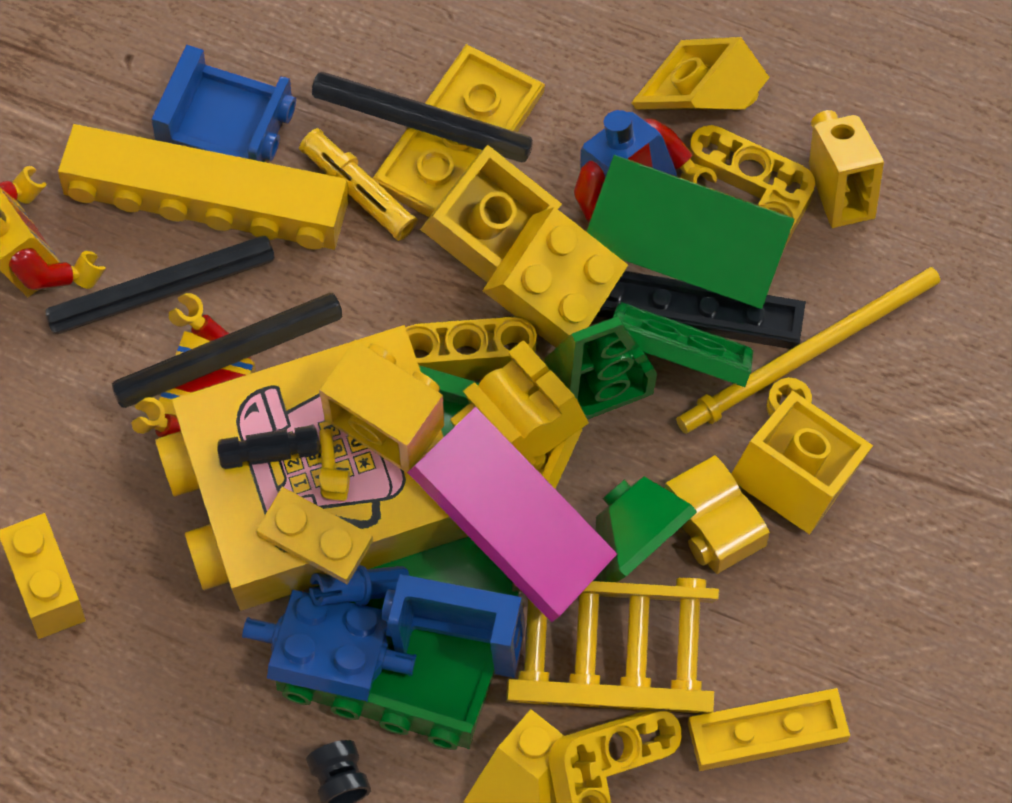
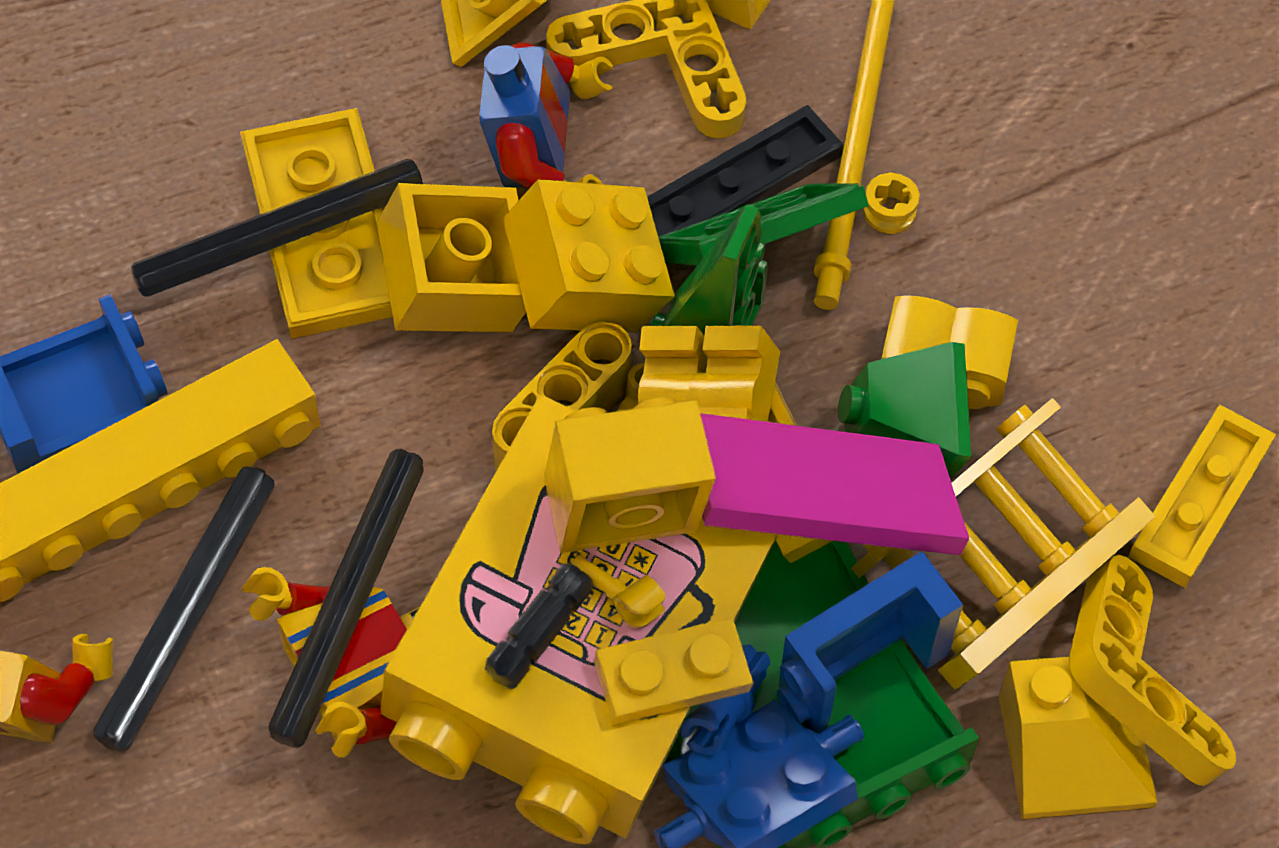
camera: 45 degrees left, 5 degrees down
(322, 150) = (205, 339): yellow pin -> none
(689, 231) = (659, 113): green tile -> none
(800, 462) = (971, 240): yellow slope -> none

